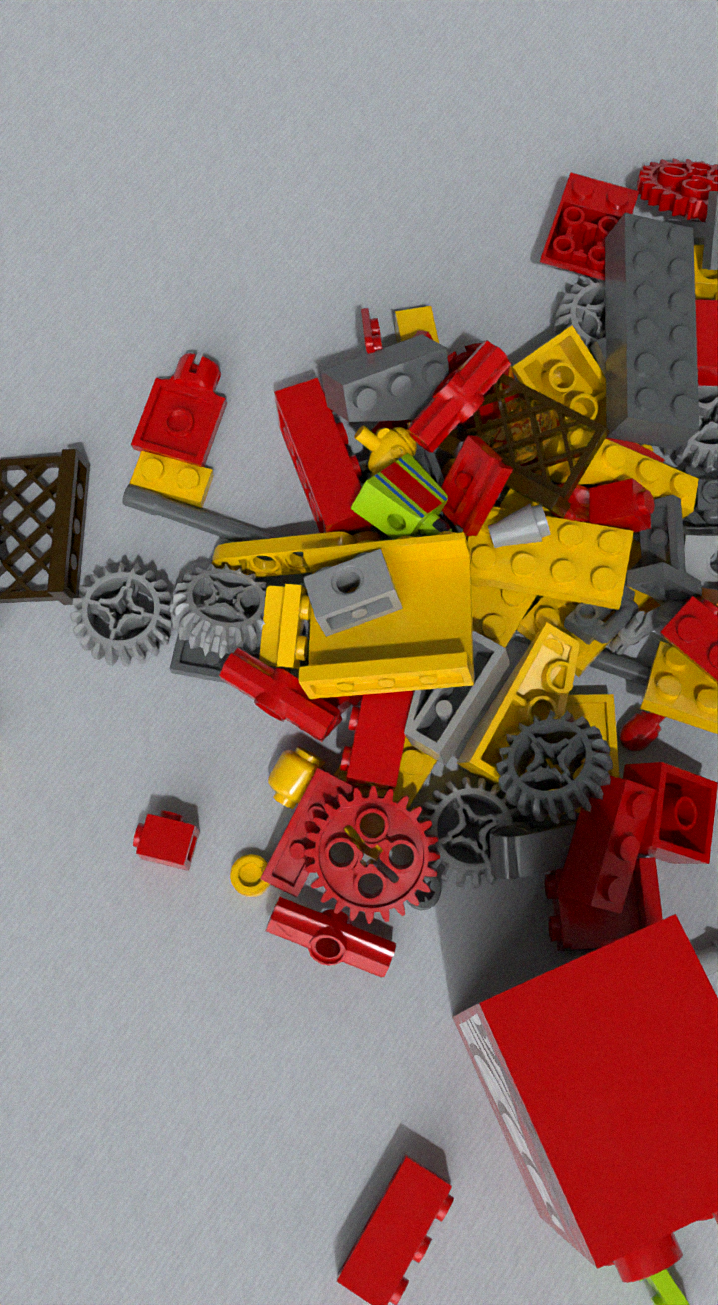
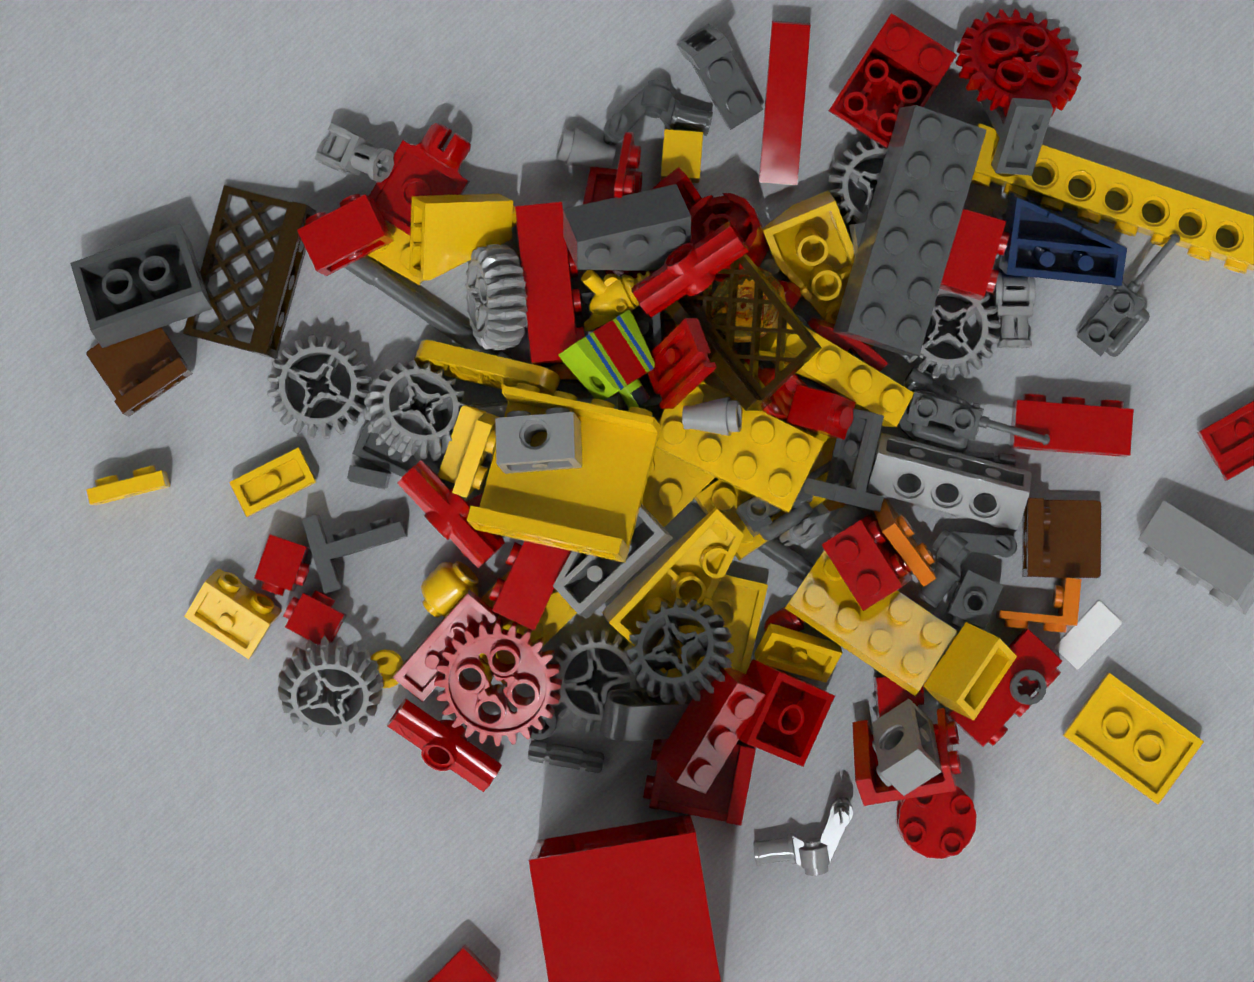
camera: 15 degrees right, 15 degrees up
(80, 856) = (233, 612): none -> yellow bracket
(96, 717) = (273, 482): none -> yellow plate
(109, 400) = (353, 154): none -> light grey connector
(118, 466) = (344, 234): none -> red brick
(122, 794) = (282, 565): none -> red brick
(174, 926) = (337, 673): none -> light grey gear
(185, 757) = (345, 544): none -> dark grey bracket
(191, 688) = (368, 477): none -> dark grey tile
(221, 436) = (452, 226): none -> yellow slope
(276, 483) = (496, 297): none -> light grey gear
(323, 352) = (584, 150): none -> light grey cone
(380, 301) = (656, 102): none -> dark grey pin
(433, 262) = (720, 74): none -> dark grey bracket
(459, 919) = (566, 756): none -> dark grey axle
(496, 273) = (784, 102): none -> red slope
(671, 747) = (798, 653): none -> yellow plate

